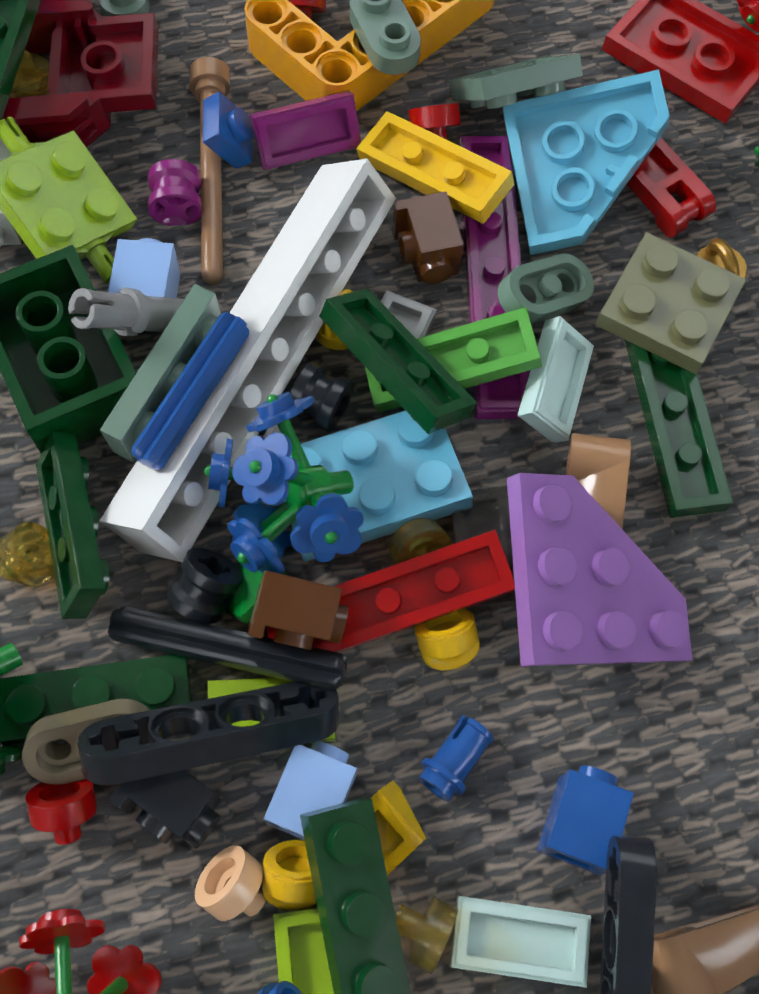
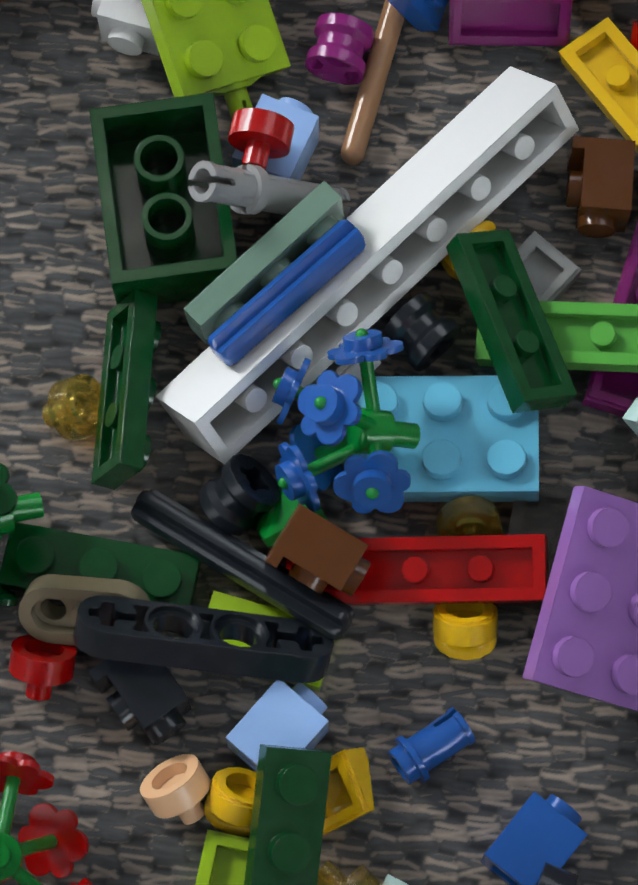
camera: 25 degrees right, 5 degrees up
(126, 264) = (260, 135): none -> red tile

